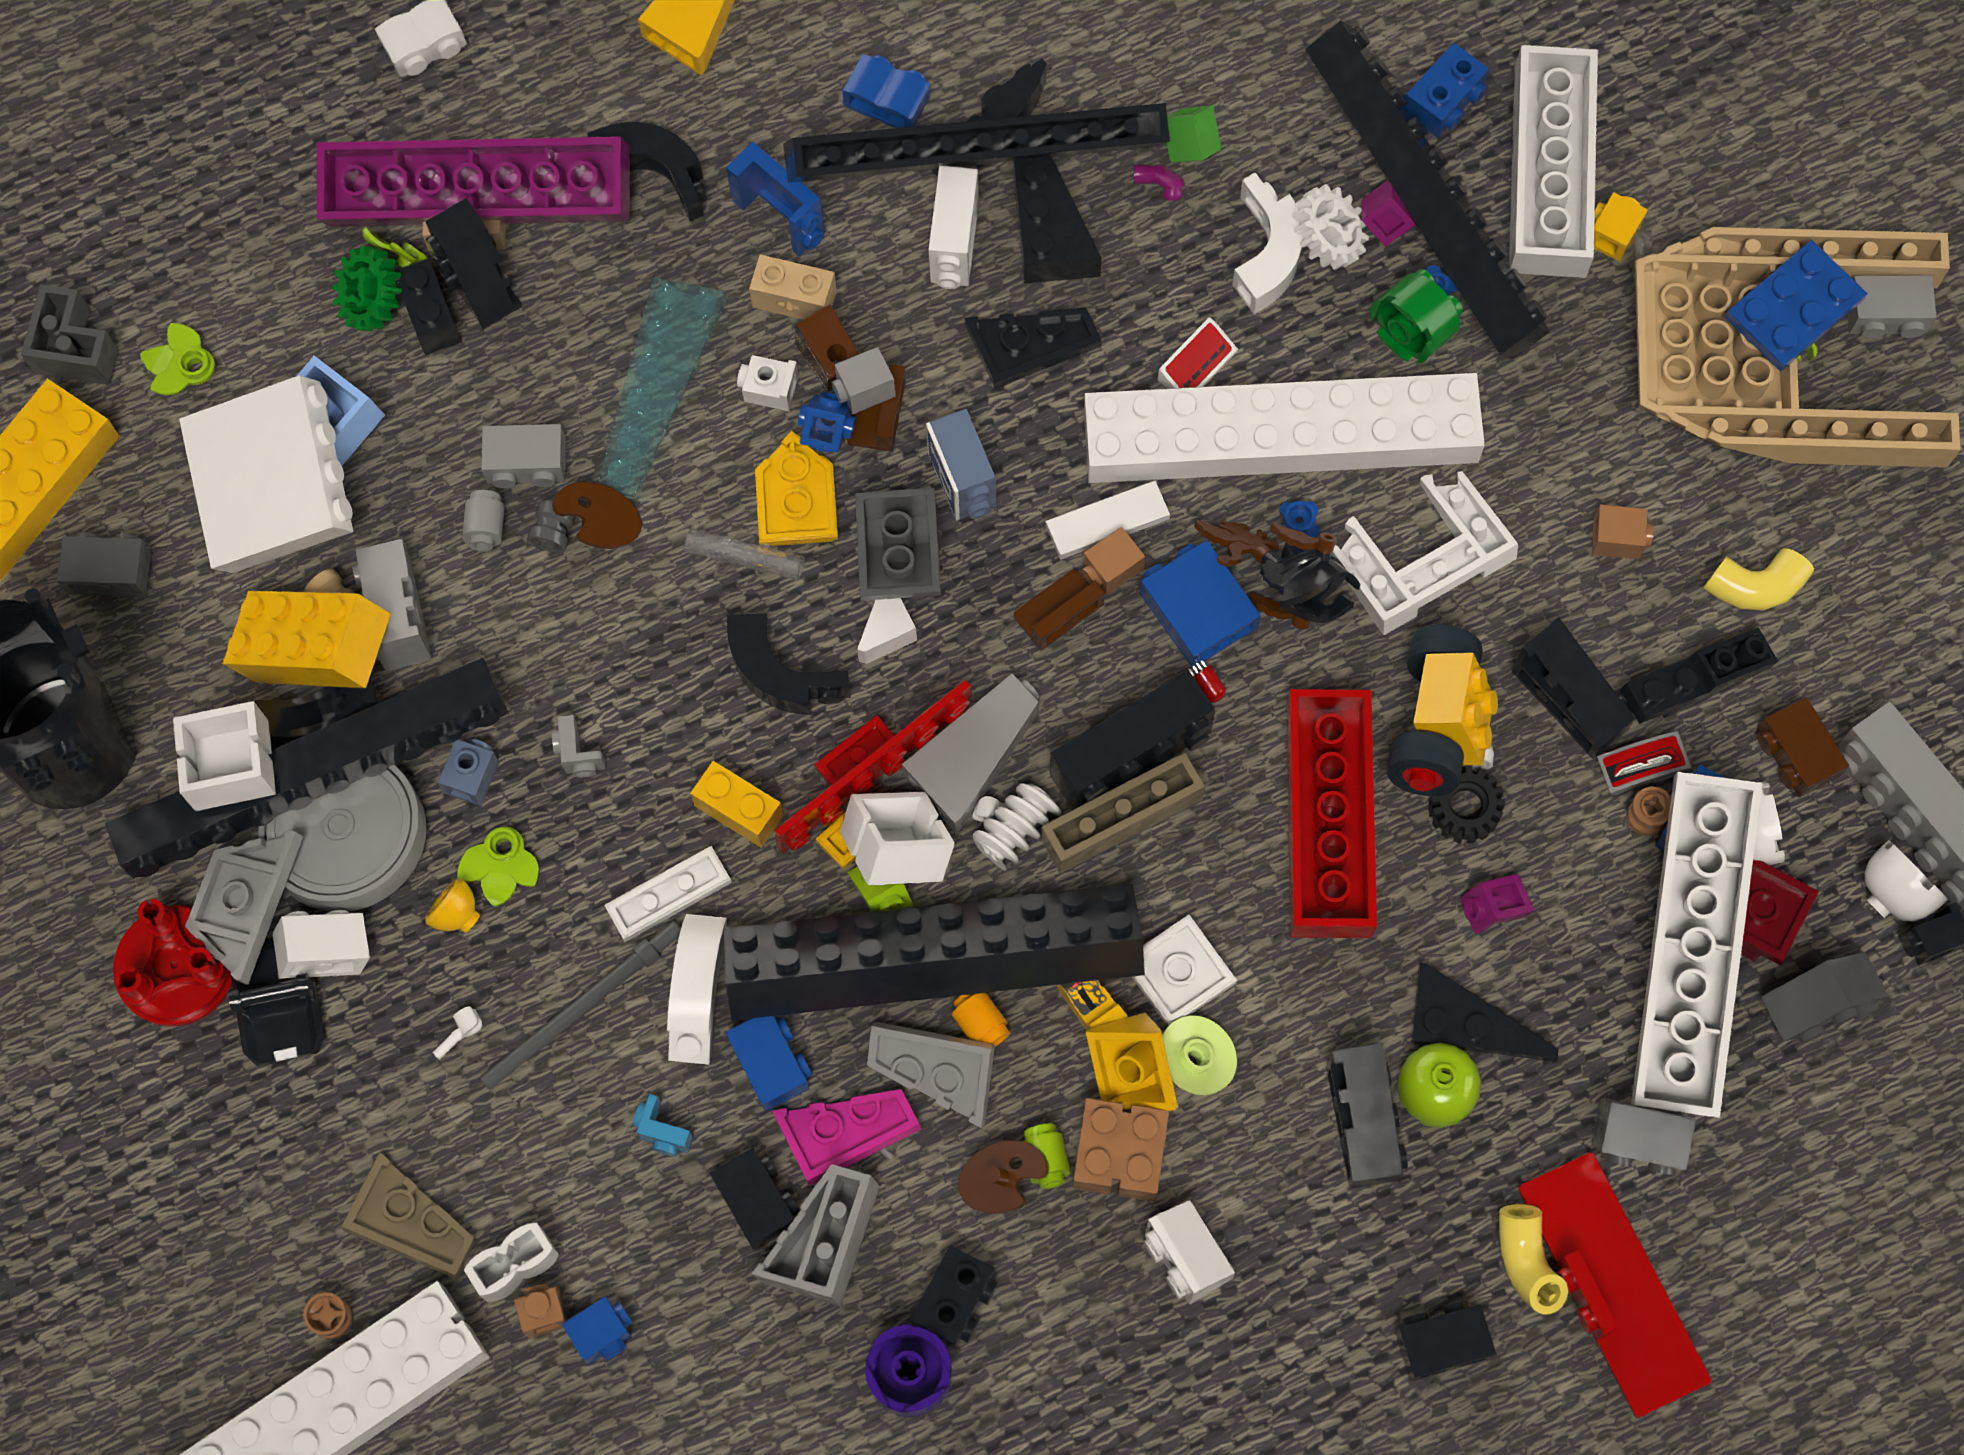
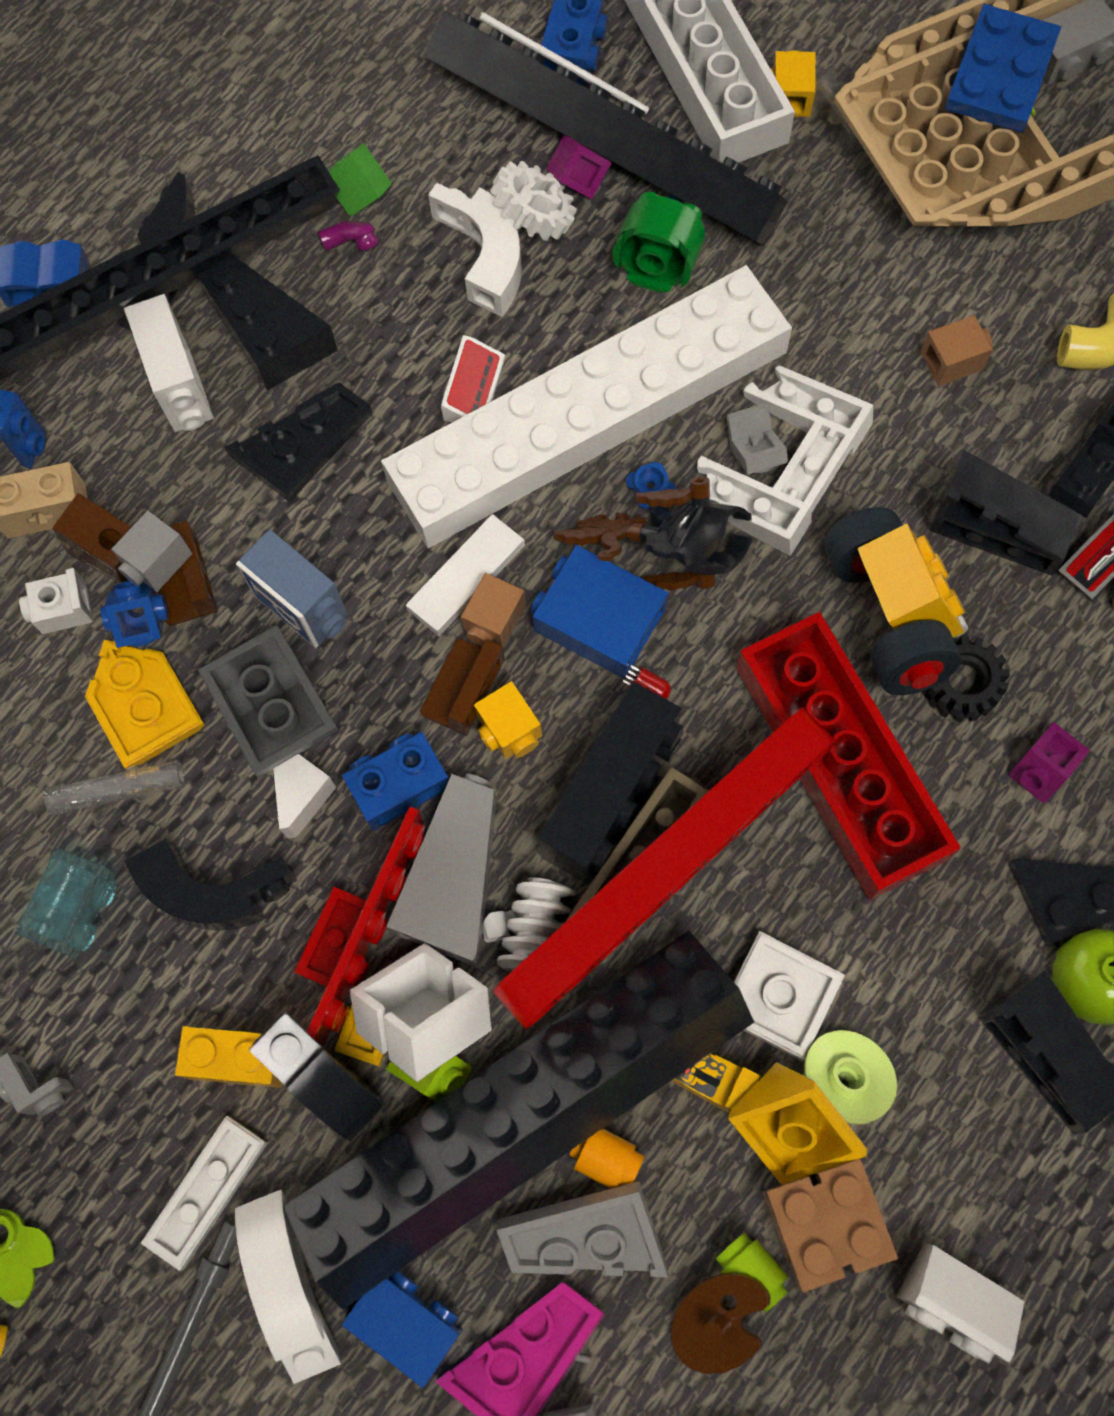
camera: 25 degrees left, 0 degrees up
(666, 626) = (67, 904): none -> clear light blue brick
(797, 845) = (316, 1077): none -> black arch
(966, 655) = (396, 779): none -> blue brick
(1077, 656) = (507, 722): none -> yellow brick
(1139, 822) = (663, 868): none -> red beam
(1405, 525) = (754, 440): none -> light grey bracket
(1423, 115) = (559, 60): none -> white piece

